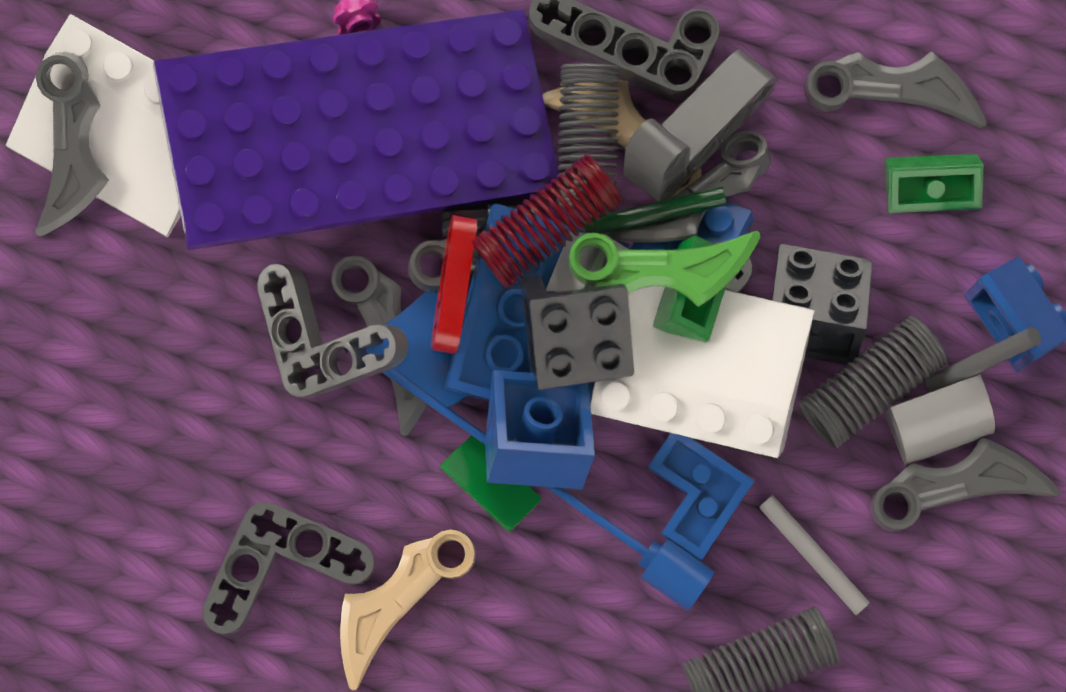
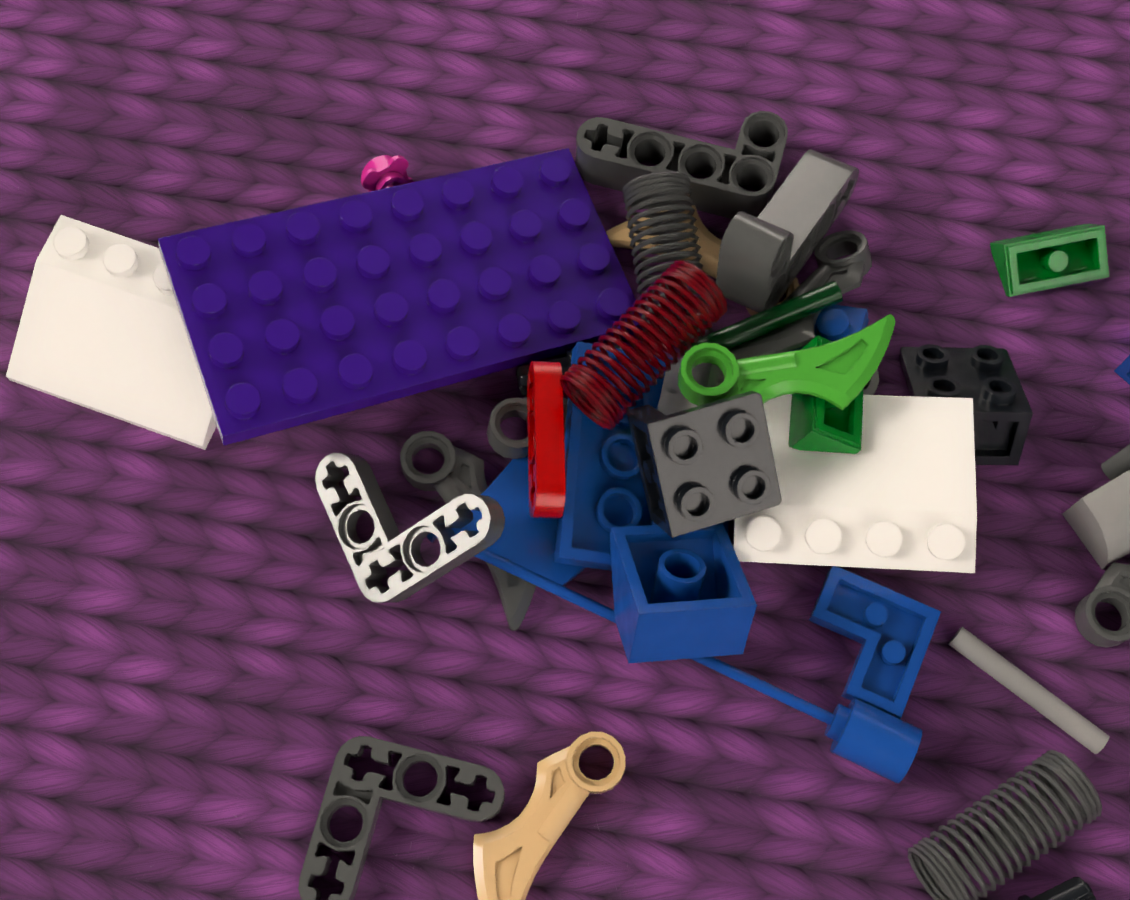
camera: 10 degrees left, 10 degrees down
(75, 175) = (85, 388): dark grey piece -> none
(503, 502) = (644, 686): green slope -> none
(824, 417) = (1018, 516): dark grey piece -> none
(923, 83) = (1007, 161): dark grey piece -> none

